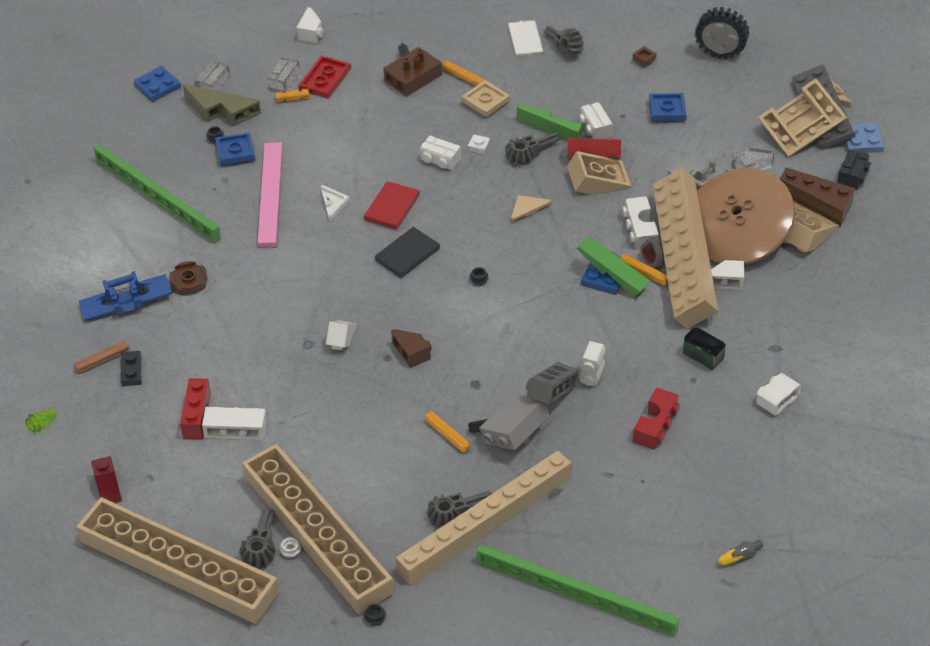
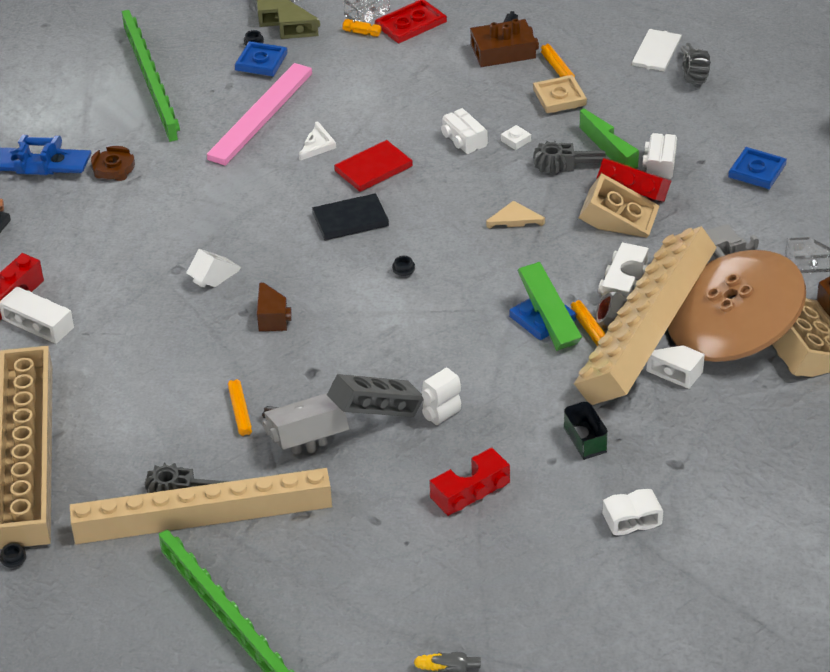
camera: 30 degrees right, 5 degrees down
(644, 56) = (774, 108): reddish brown plate -> none

